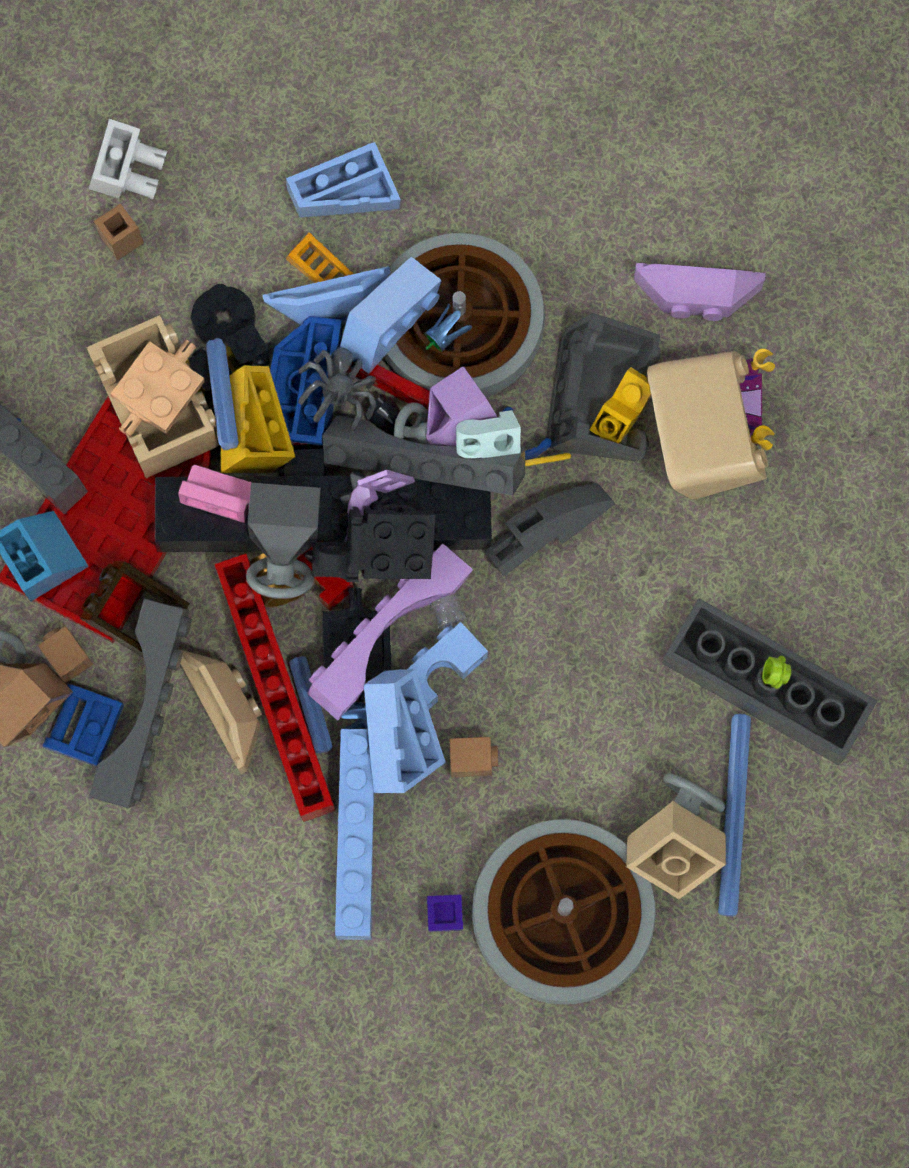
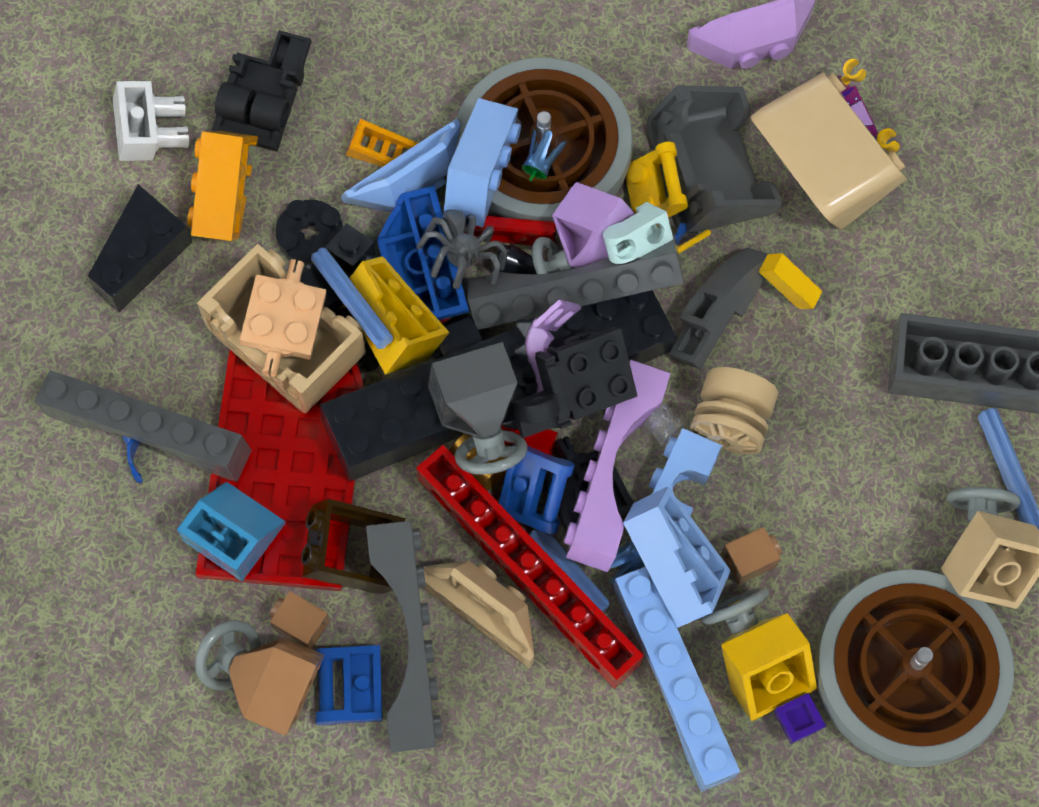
camera: 25 degrees left, 5 degrees down
(68, 275) = (137, 249): none -> black wedge
(118, 232) = (170, 187): medium nougat brick -> none
(161, 244) = (220, 184): none -> light orange wedge
(216, 493) = (392, 395): bright pink panel -> none
(232, 175) = (262, 91): none -> black plate
(301, 619) = (524, 486): none -> blue plate
(344, 185) = (376, 62): light blue wedge -> none
(436, 846) = (763, 659): none -> yellow piece
(517, 619) = (735, 409): none -> tan wheel
(540, 394) = (646, 181): none -> yellow plate
(618, 529) = (790, 281): none -> yellow piece
(623, 407) = (739, 163): yellow slope -> none
(776, 671) = (1010, 350): lime plate -> none

